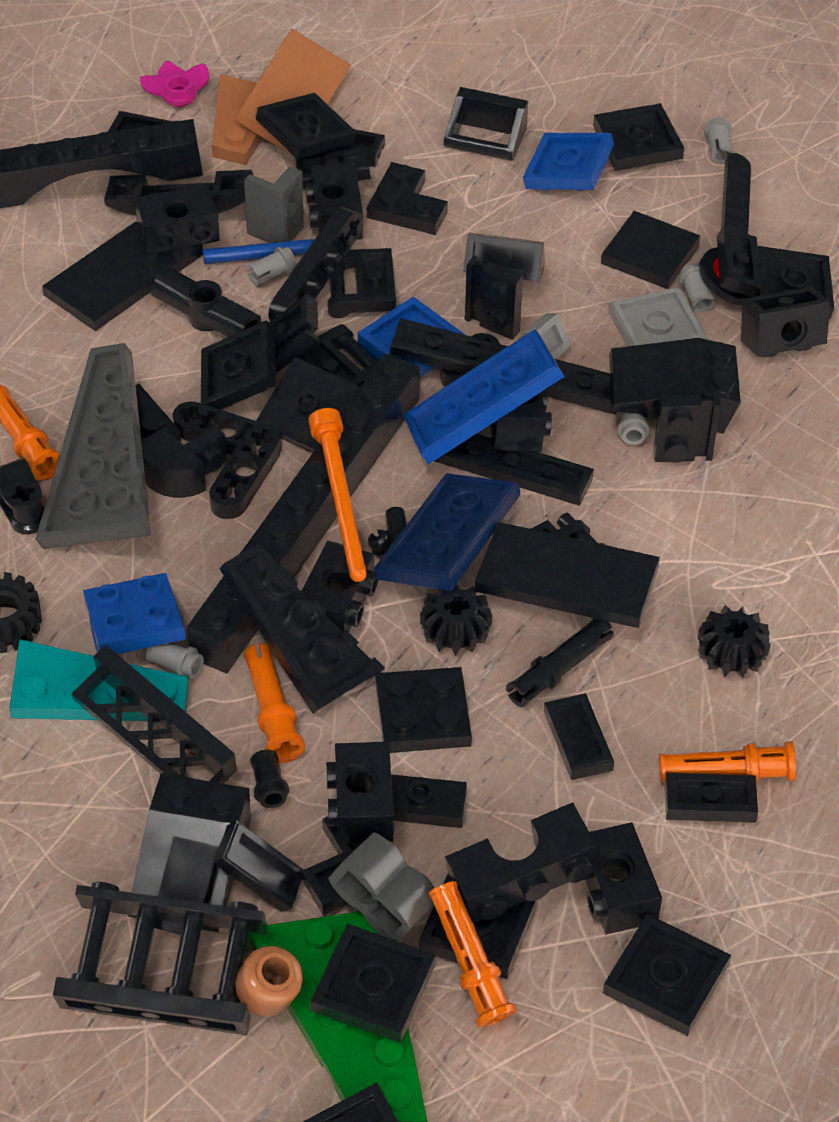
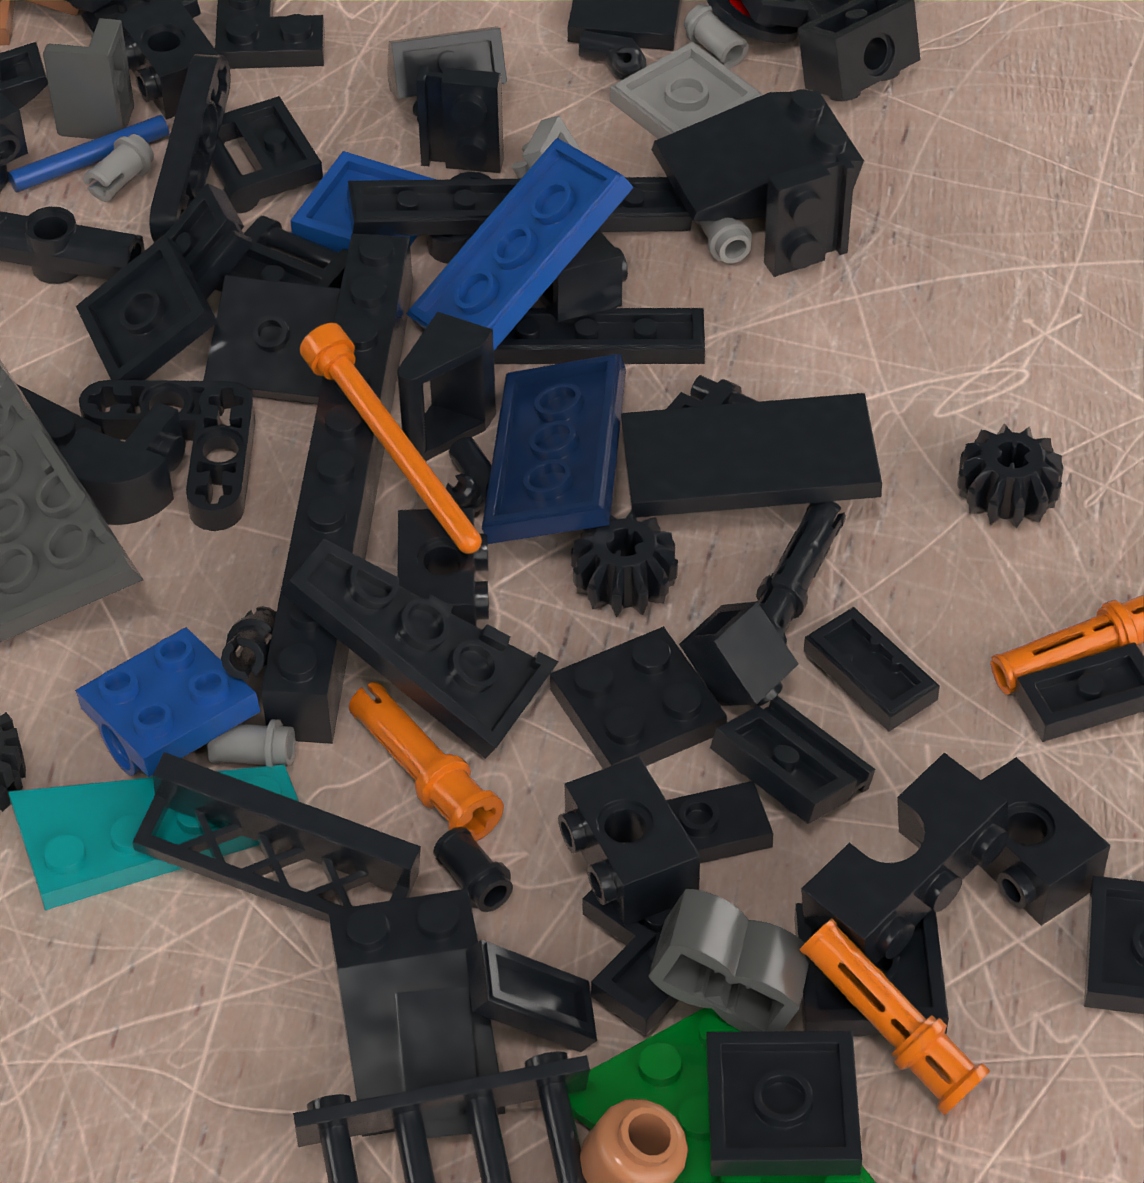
camera: 20 degrees left, 0 degrees up
(197, 593) = (250, 635): none -> black pin
(410, 470) = (461, 374): none -> black tile
(494, 700) = (740, 655): none -> black brick
(498, 777) = (792, 759): none -> black plate
(628, 281) = (618, 52): none -> black arm

